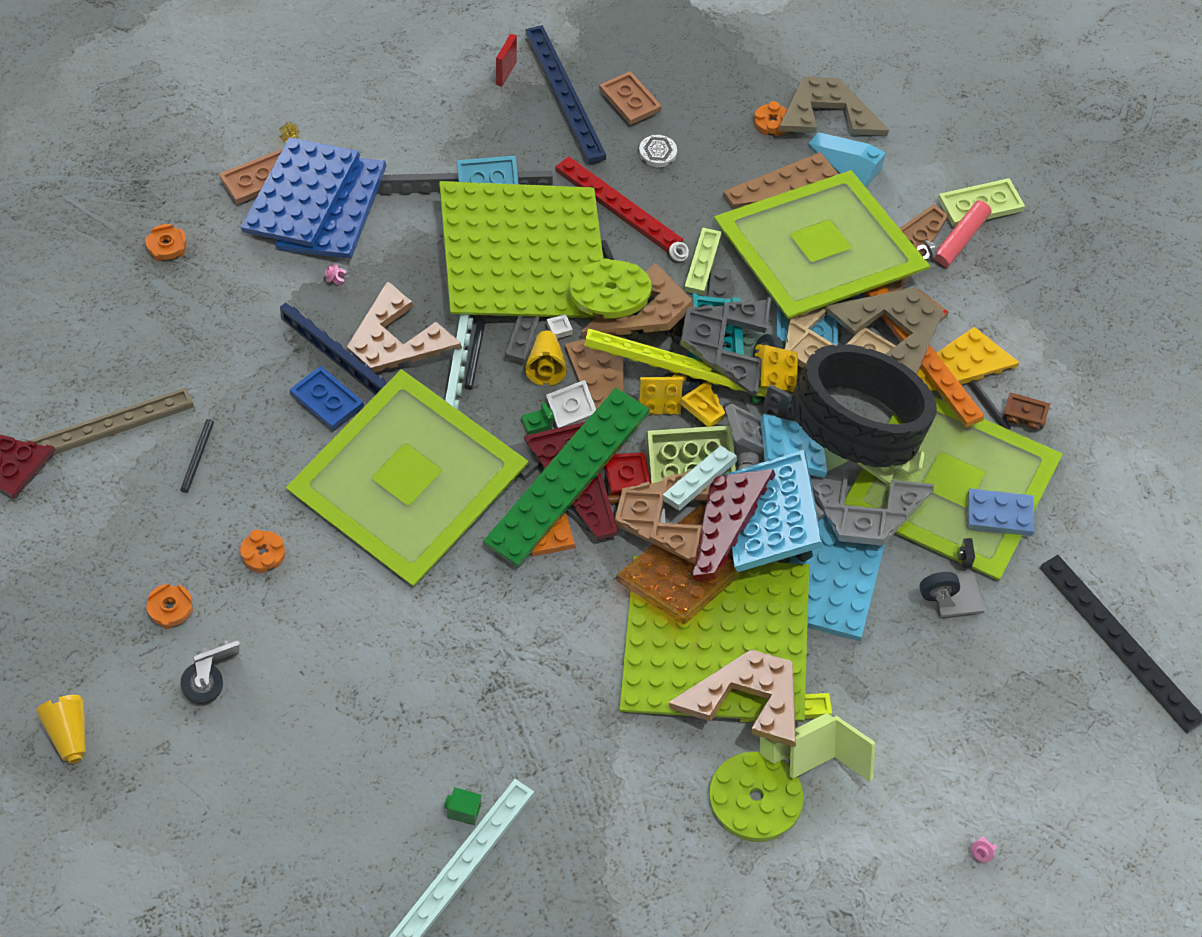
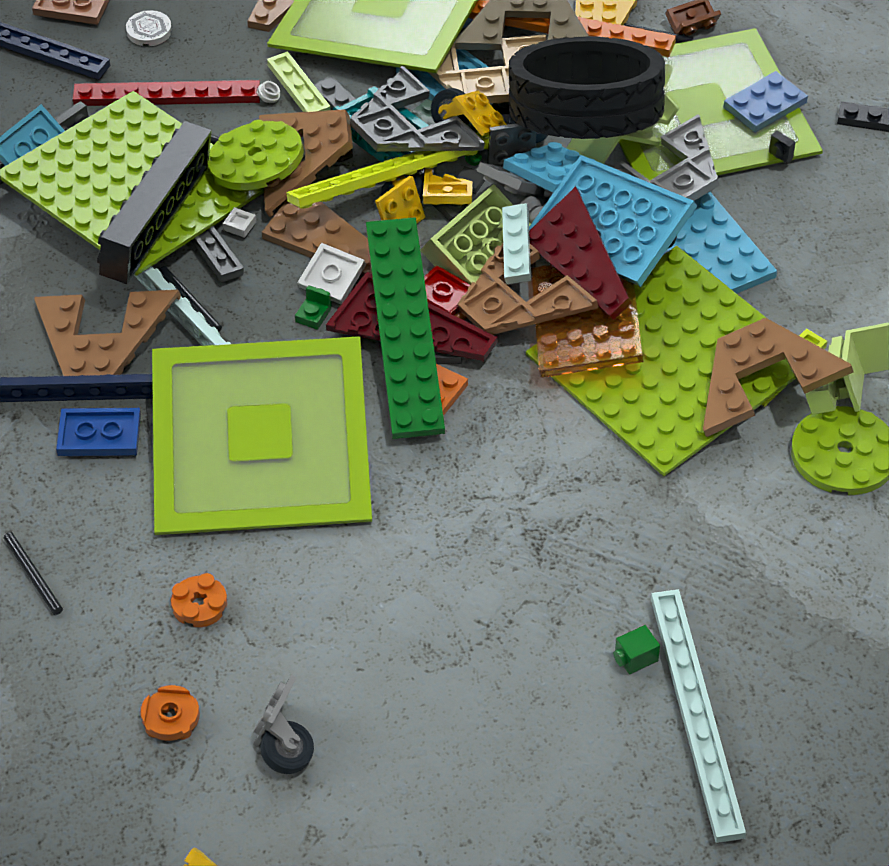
camera: 40 degrees left, 5 degrees down
(503, 273) = (154, 202): none -> brick
(546, 360) = (265, 252): yellow cone -> none
(953, 593) = (805, 186): light grey plate -> none

